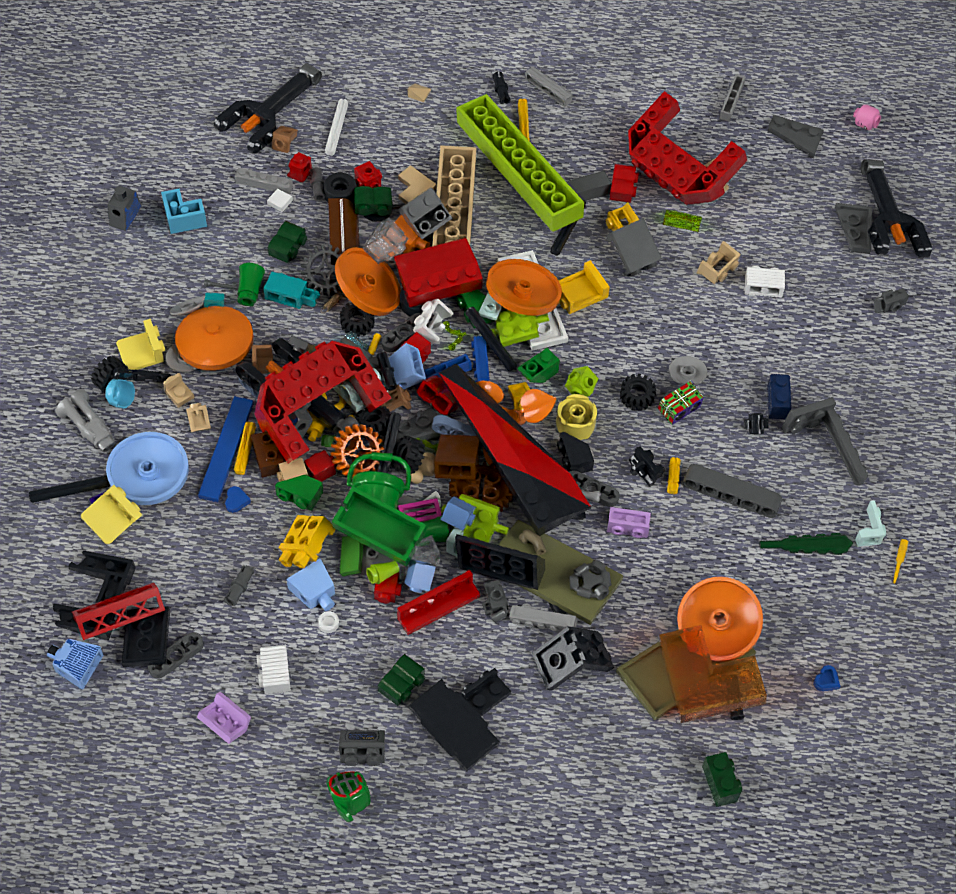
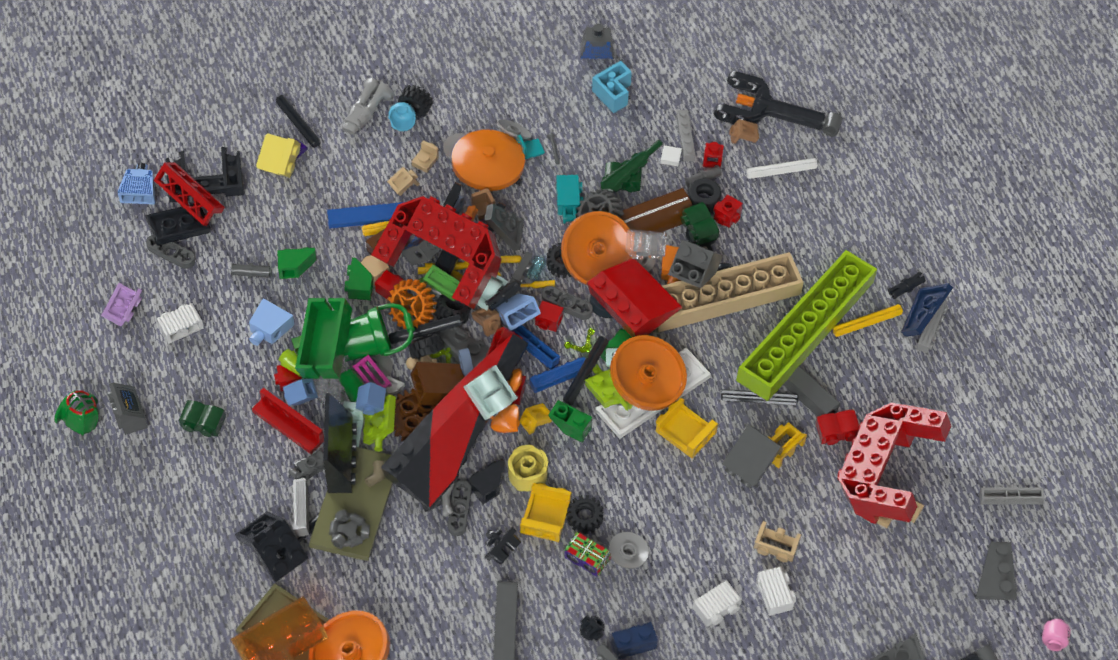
camera: 70 degrees right, 0 degrees up
(139, 375) = (424, 123): black piece -> none
(142, 349) = (456, 114): light yellow bracket -> none
(148, 467) = (334, 163): light blue dish -> none
(236, 499) = (335, 239): blue tile -> none
(249, 283) = (560, 165): green plant -> none
(250, 542) = (295, 262): none -> green slope
(290, 237) = (620, 175): none -> dark green sword
(304, 540) = (297, 296): yellow hips -> none
(328, 622) = (241, 348): white tile -> none
(349, 413) = (441, 281): none -> bright green tile
(416, 184) = (750, 252): tan tile -> none
(418, 92) = (863, 218): tan slope -> none
(440, 312) = (582, 324): white window -> none
(454, 724) = (172, 471): black piece -> none
(486, 692) = (213, 486): black bracket -> none
(503, 407) = (490, 392): none -> light aqua plate
(533, 82) = (924, 308): none -> dark blue wing
(581, 381) = (570, 461): lime brick -> none
(624, 422) = (546, 512): none -> yellow panel
(628, 522) = (433, 548): lavender bracket -> none
(673, 475) = (503, 573): yellow axle -> none
(682, 220) = (821, 495): clear neon green slope -> none
(763, 326) = (717, 603): none -> white brick

